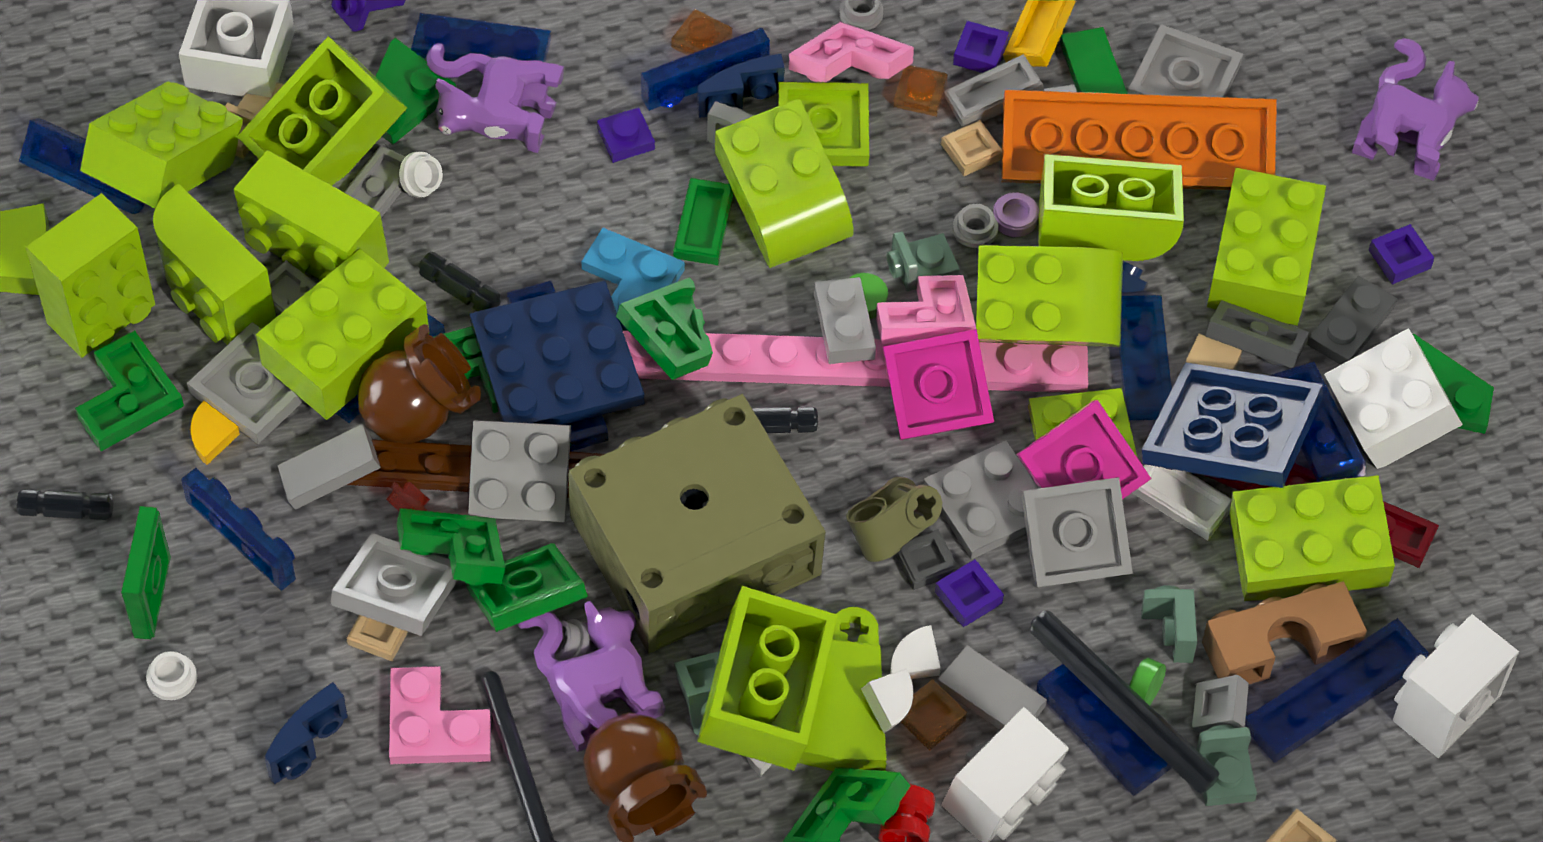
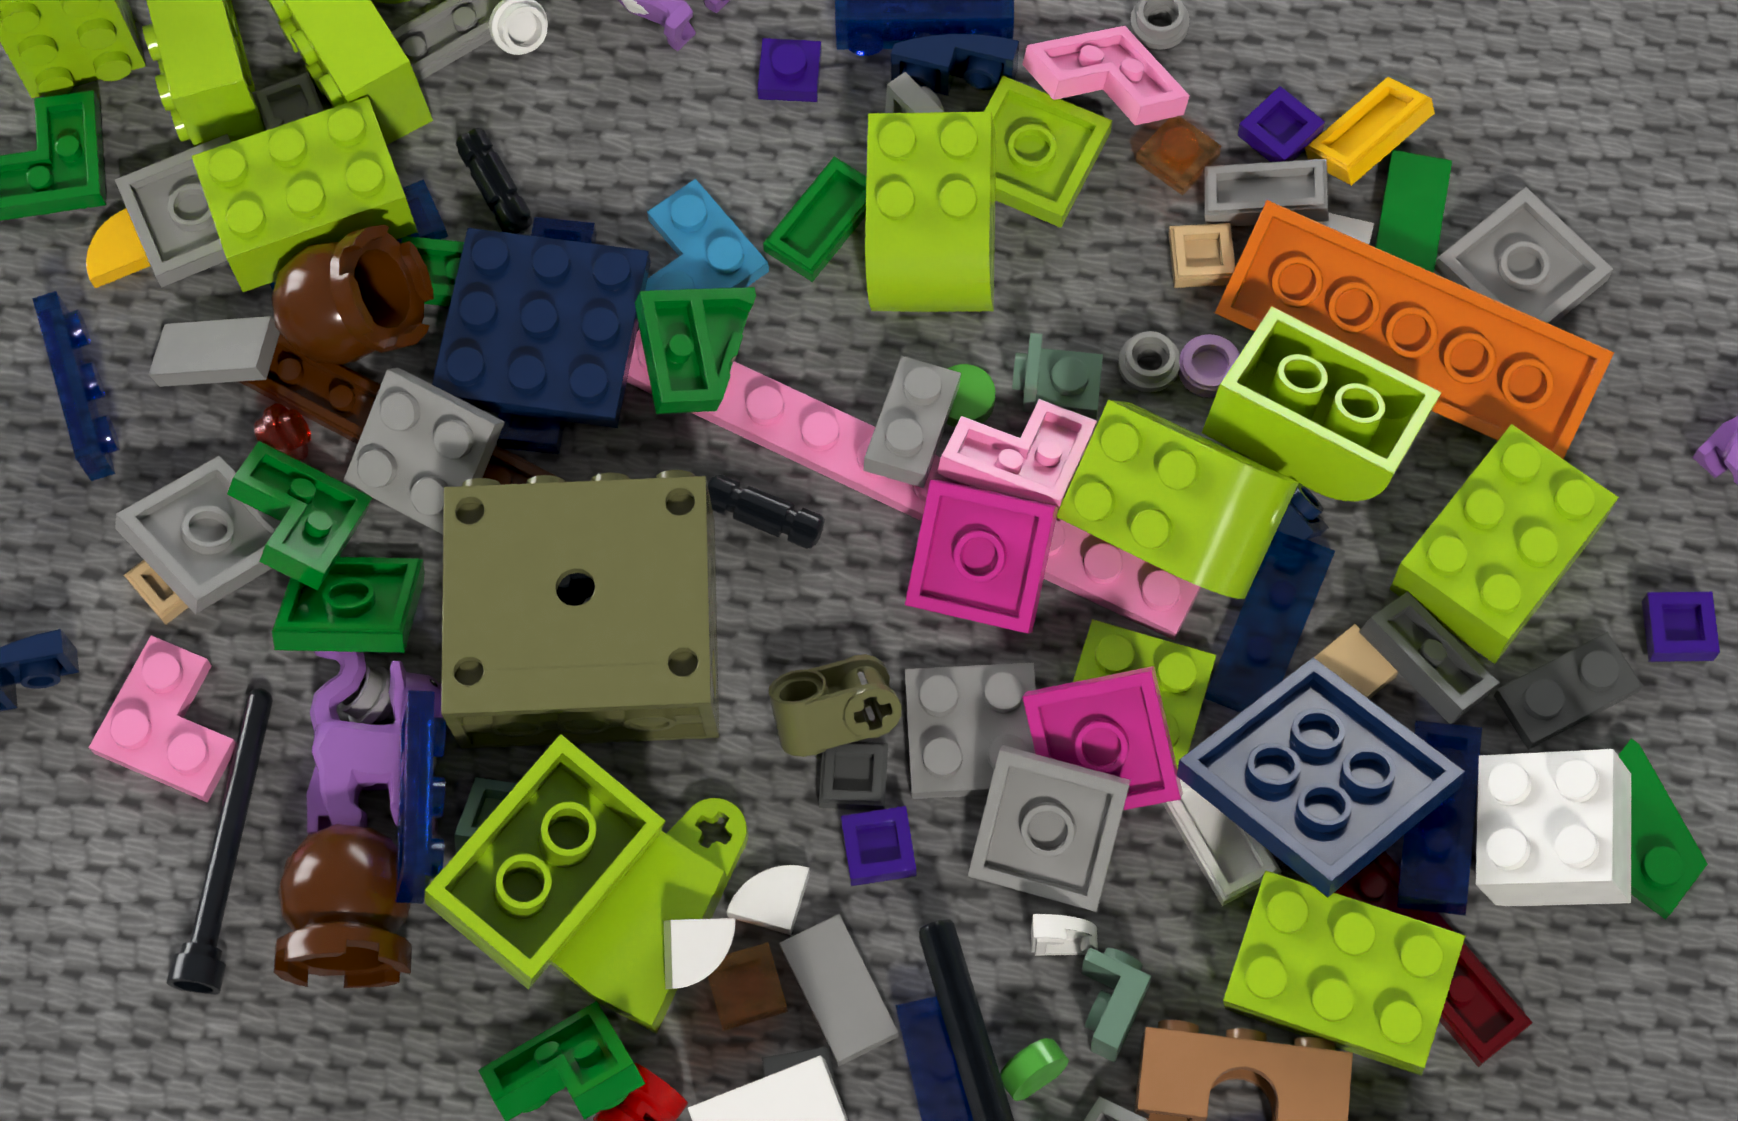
camera: 30 degrees right, 10 degrees up
(657, 674) = (419, 797): none -> clear blue plate
(1117, 597) = (1052, 936): none -> white tile

